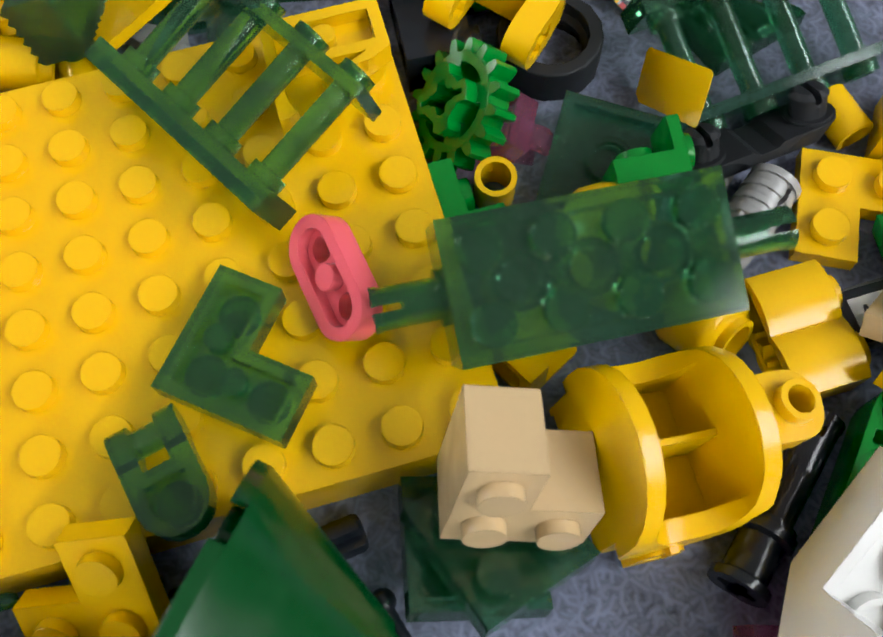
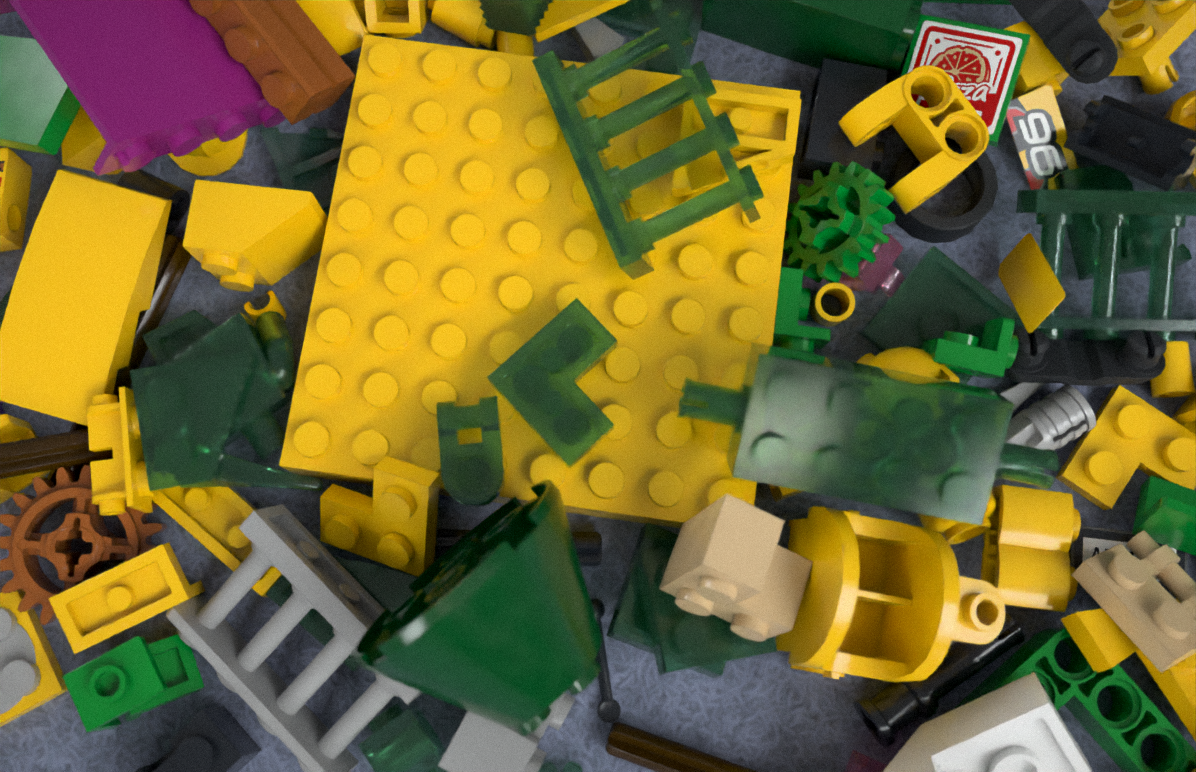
camera: 20 degrees right, 10 degrees up
(333, 277) = (662, 346): coral plate -> none

